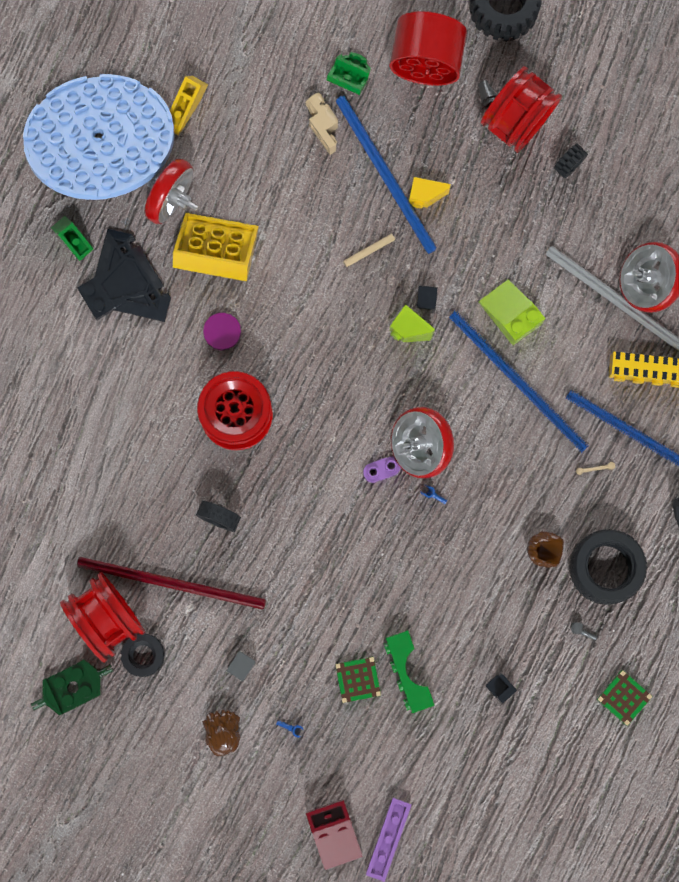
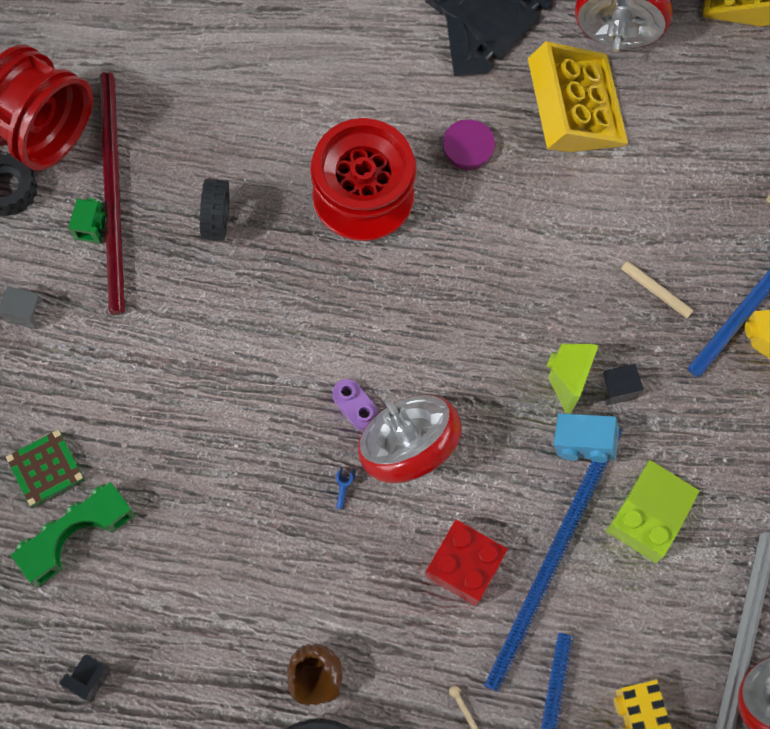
camera: 70 degrees right, 10 degrees down
(191, 604) = (87, 220): none -> green brick
(455, 334) = (586, 437): none -> dark azure brick
(507, 436) = (465, 562): none -> red brick

